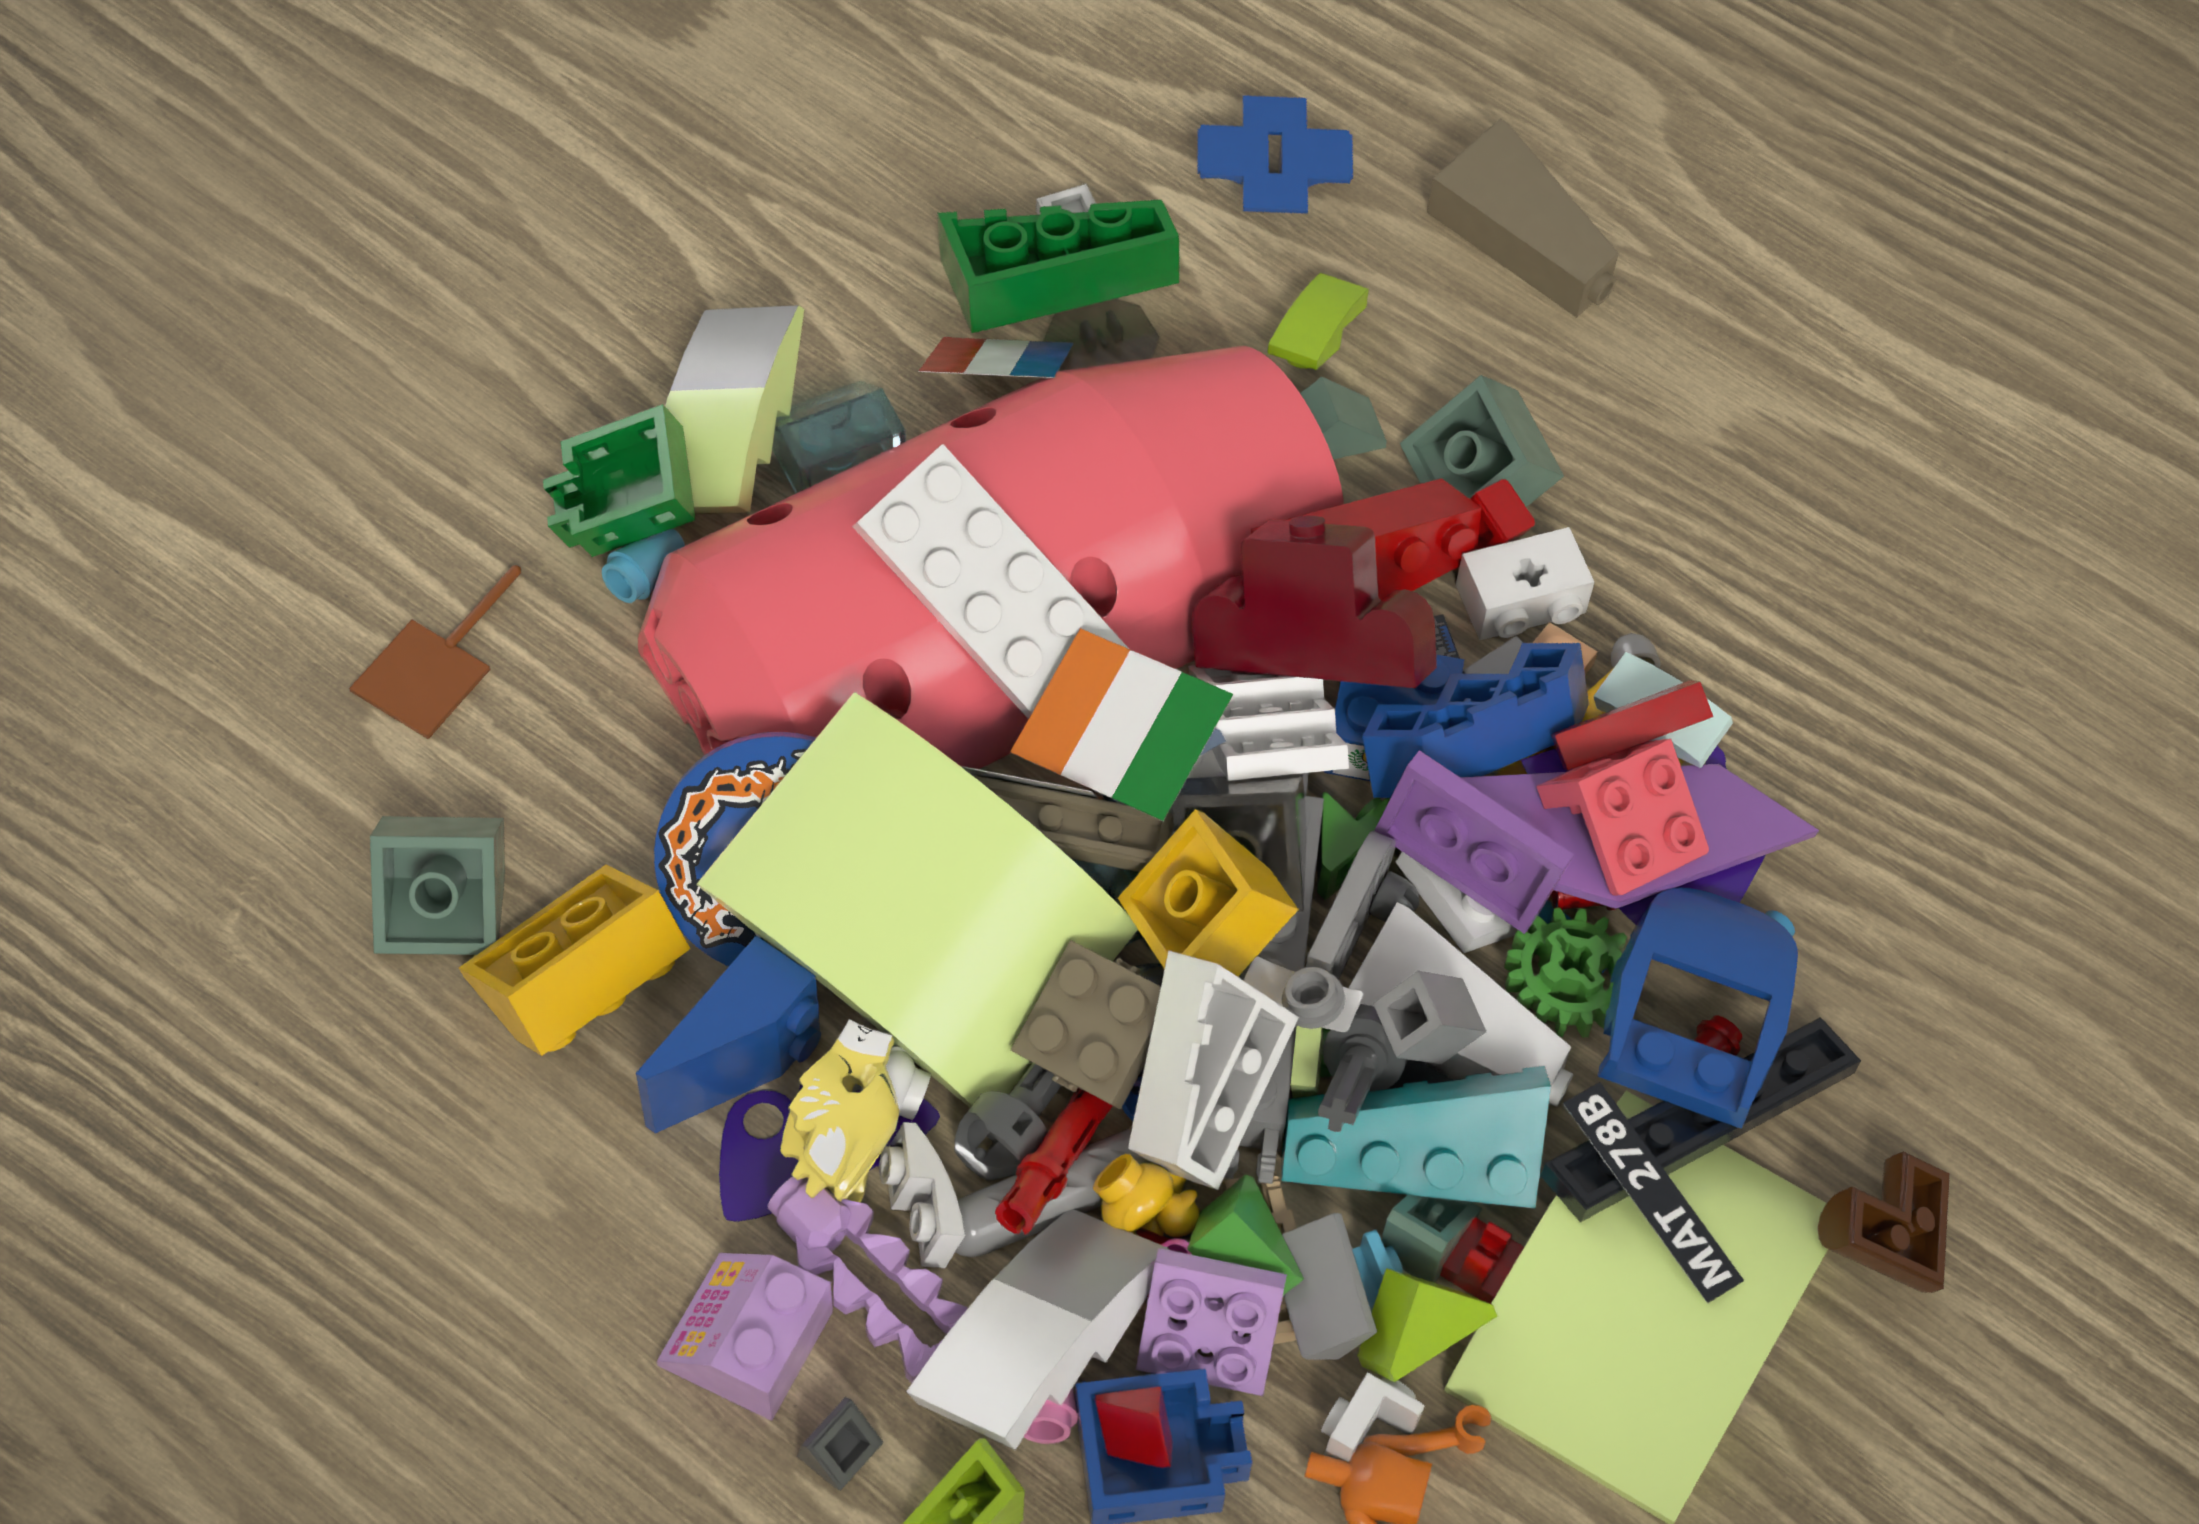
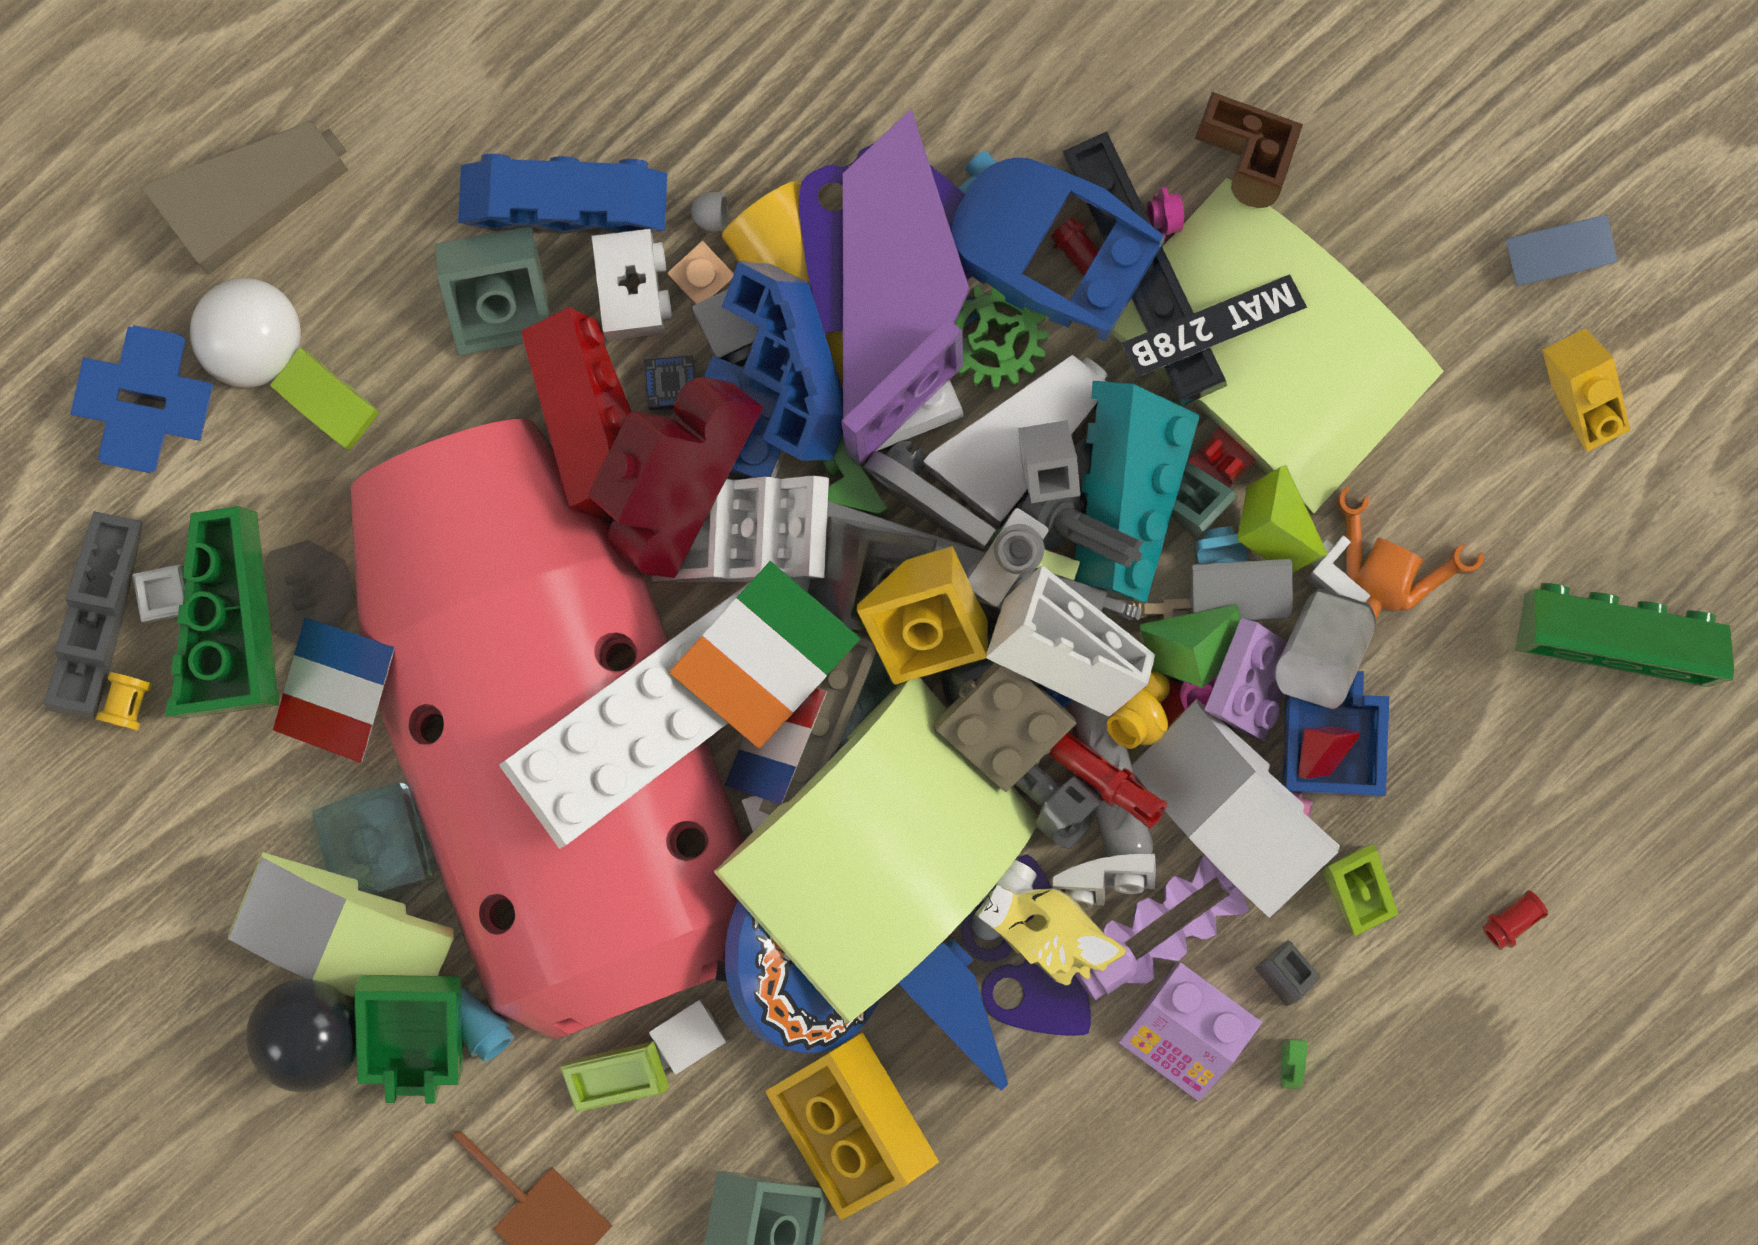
camera: 75 degrees left, 25 degrees up
(601, 698) = (614, 1076): none -> lime tile
(604, 377) = (302, 1035): none -> black piece
(651, 763) = (687, 1037): none -> white brick
(730, 1466) = (1293, 1063): none -> bright green tile
(934, 202) = (124, 701): none -> yellow bush
(1033, 160) = (94, 615): none -> dark grey slope
(1270, 1395) = (1325, 648): none -> flat silver piece
(1344, 418) = (432, 404): sand green slope -> none
(1373, 240) = (244, 332): none -> white piece
(1502, 515) = (569, 288): red slope -> none
(1609, 501) = (562, 194): none -> blue brick
(1632, 724) = (821, 236): red piece -> none
(1634, 812) = (892, 260): coral bracket -> none
(1637, 679) = (797, 207): light aqua slope -> none
(1779, 1141) = (1166, 212): none -> dark pink plate

